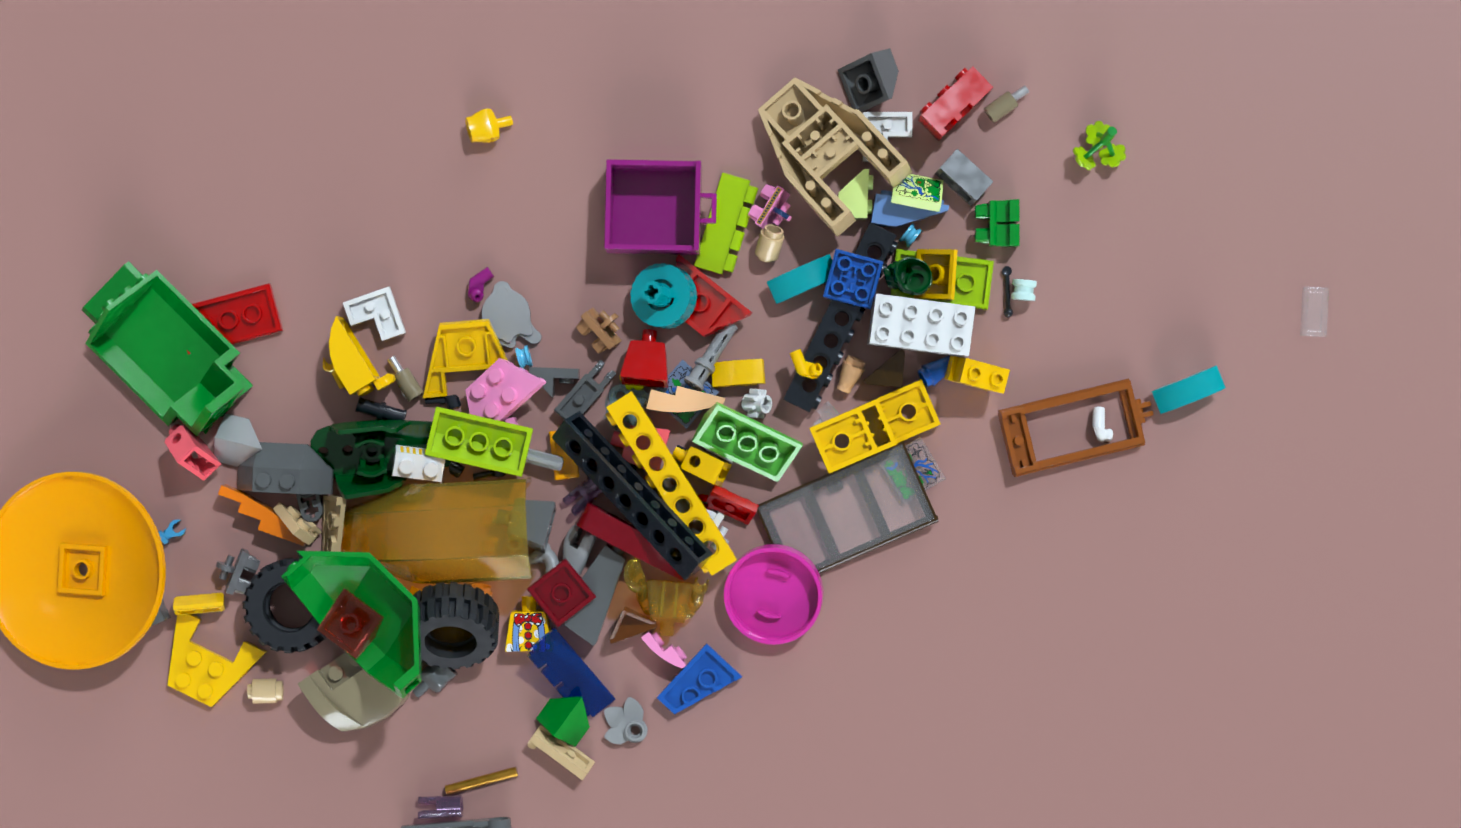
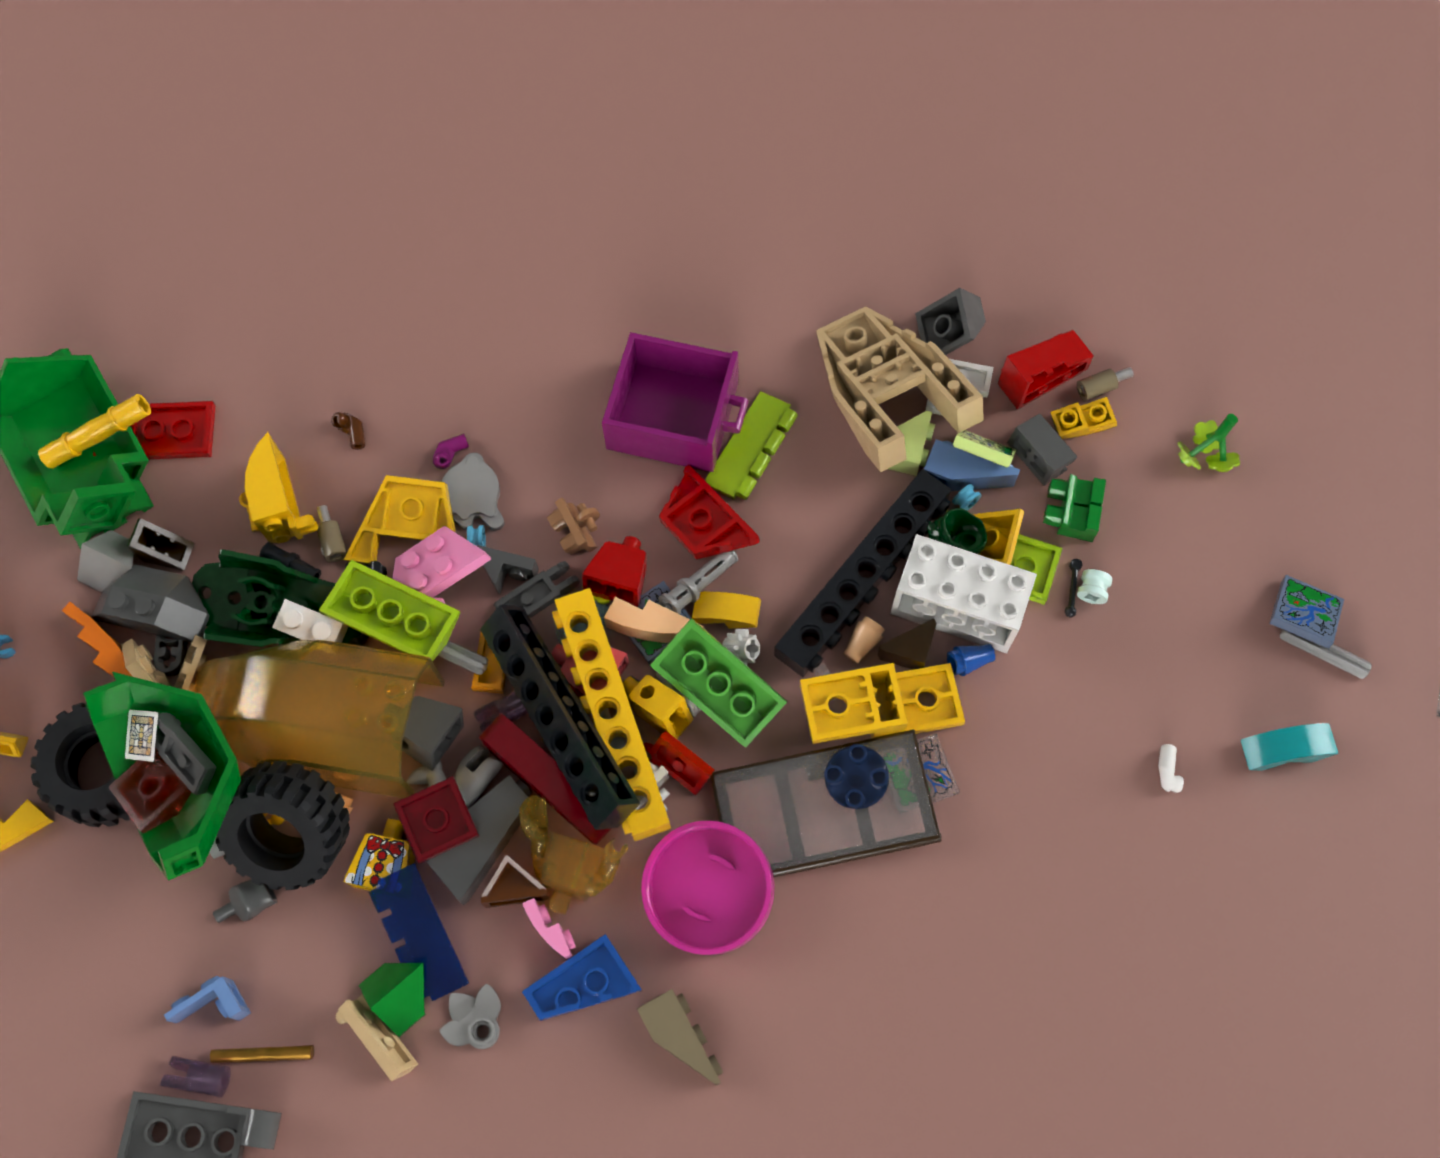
camera: 20 degrees right, 20 degrees down
(182, 443) = (44, 551): coral torso -> none
(188, 340) = (94, 431): none -> yellow piece
(235, 582) = (60, 701): flat silver hips -> none
(265, 690) = (29, 867): tan brick -> none
(274, 420) = (159, 546): none -> dark brown slope
(330, 588) = (141, 735): none -> sticker
(349, 696) = (132, 900): dark tan piece -> none
(367, 596) = (183, 754): none -> dark grey hinge
(378, 306) = (325, 449): white plate -> none
(391, 280) = (350, 426): none -> reddish brown arm
(447, 752) = (229, 1003): none -> medium blue bracket
(485, 127) = (506, 289): yellow piece -> none
(651, 292) = (653, 488): teal piece -> none
(769, 243) = (798, 471): tan brick -> none
(771, 700) = (671, 1030): none -> dark tan slope
(775, 208) = (810, 438): bright pink hips -> none
(800, 279) = (825, 515): teal brick -> none
(804, 367) = (806, 611): yellow arm -> none
(853, 279) = (889, 525): blue tile -> none
(866, 489) = (856, 777): none -> dark blue dish
(977, 374) = (1022, 667): yellow hips -> none
(994, 140) = (1084, 419): none -> yellow slope
(1019, 442) = (1061, 766): dark orange animal -> none
(1192, 274) = (1307, 611): none -> sand blue tile
(1210, 302) = (1333, 655): none -> light grey axle

